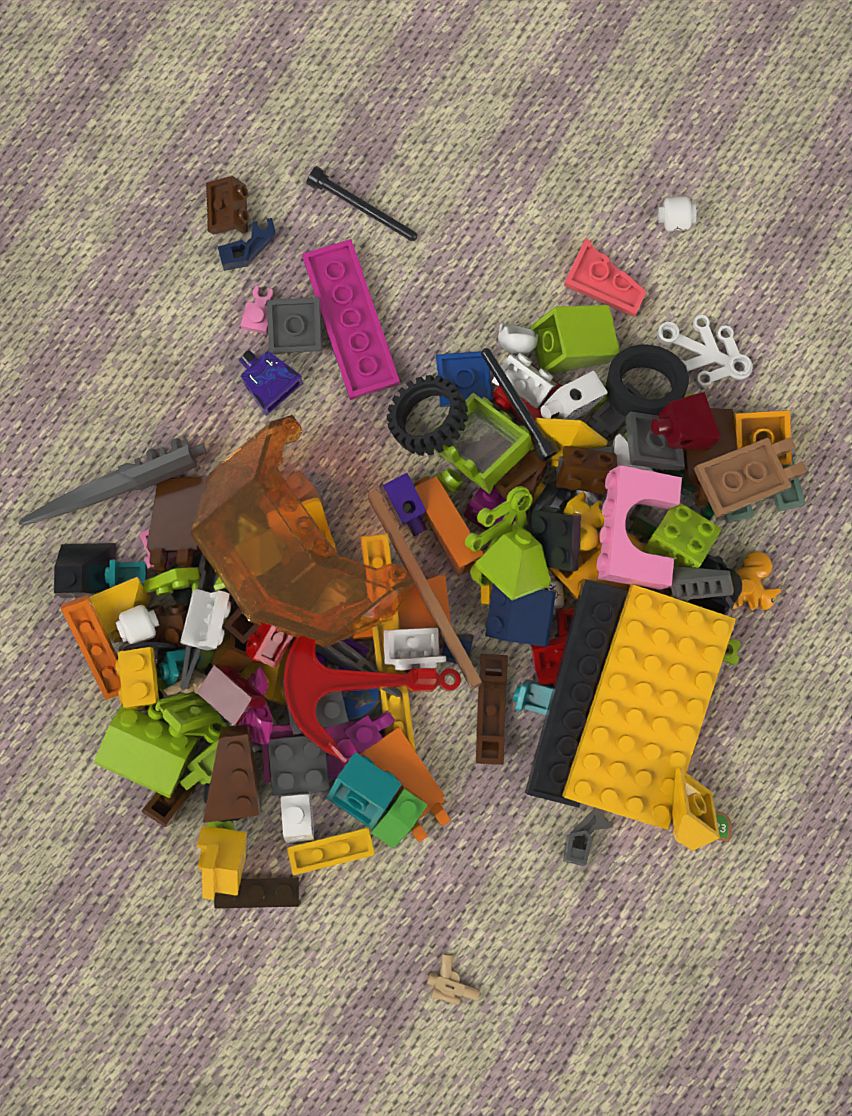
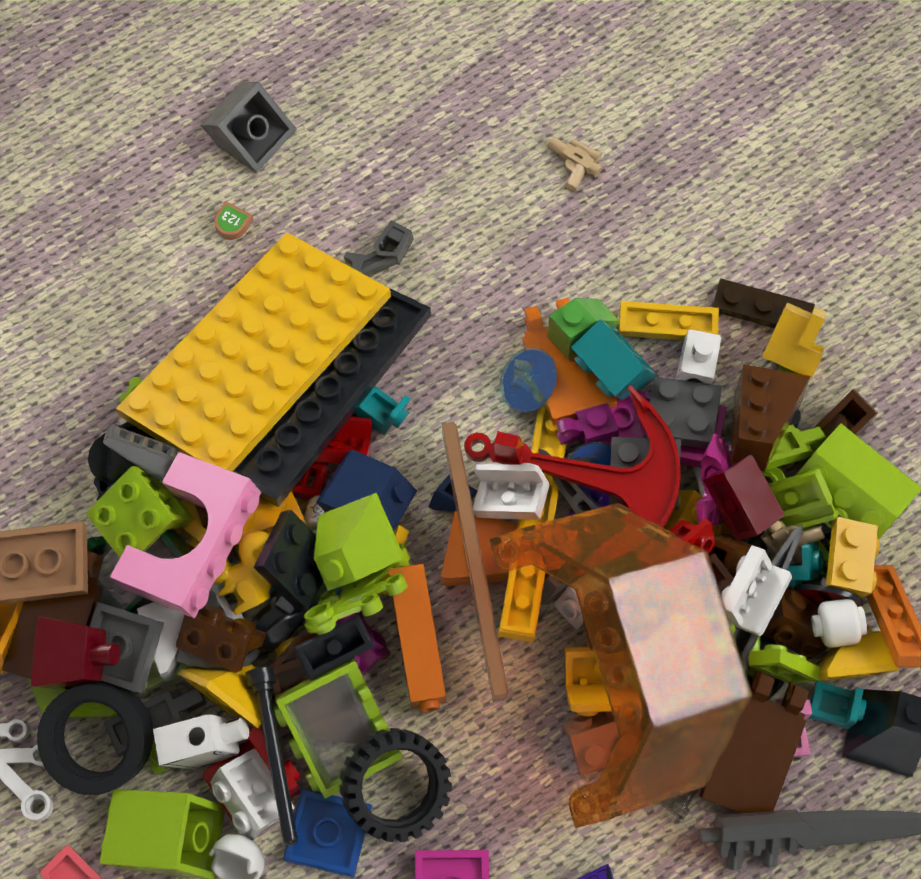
camera: 160 degrees left, 10 degrees down
(403, 491) = (462, 684): dark purple torso -> none
(429, 758) = (528, 379): none -> clear light blue piece
(450, 480) = (393, 698): lime plate -> none
(491, 709) = (440, 407): reddish brown slope -> none
(498, 488) = (334, 648): none -> black slope
(693, 812) = (252, 234): yellow slope -> none
(738, 918) = (249, 125): none -> dark grey slope
(756, 567) = (61, 475): light orange animal -> none

